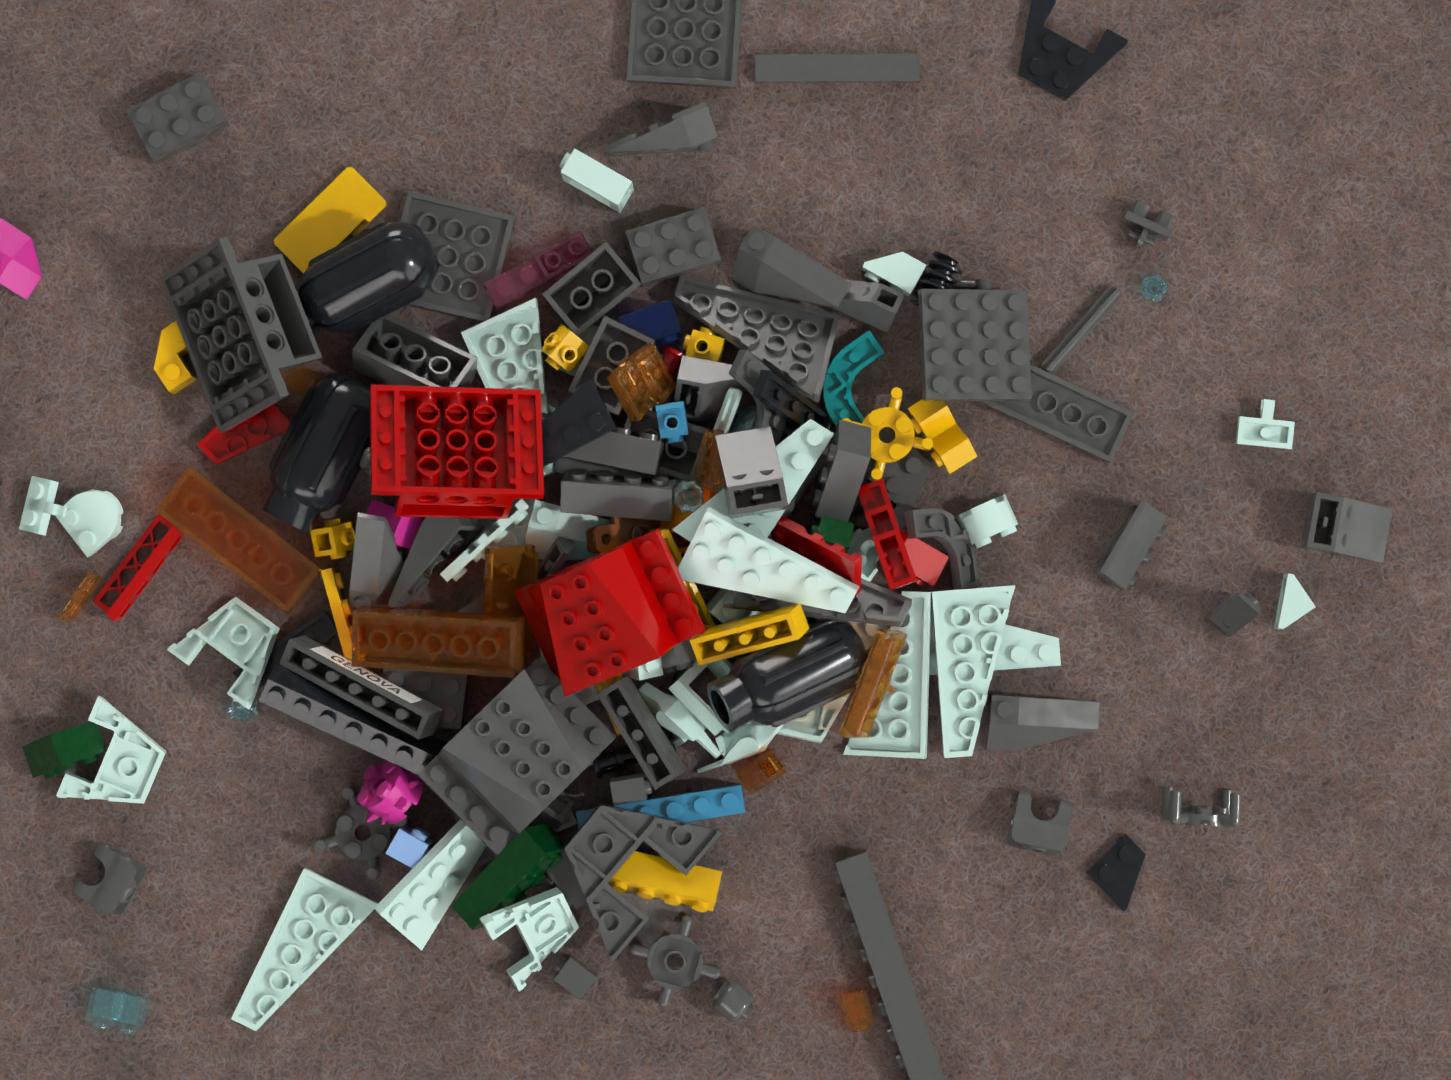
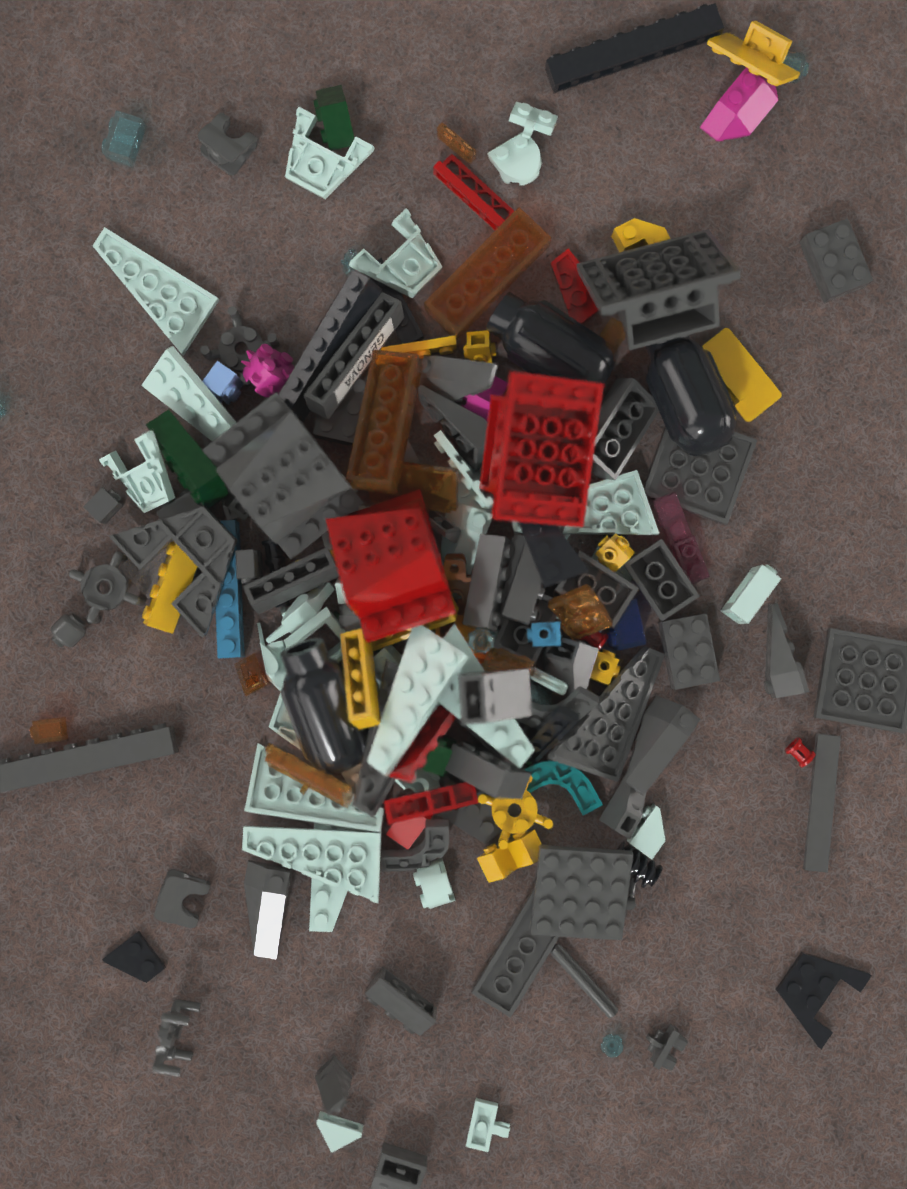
camera: 90 degrees right, 0 degrees up
(771, 105) = (803, 759): none -> red bush

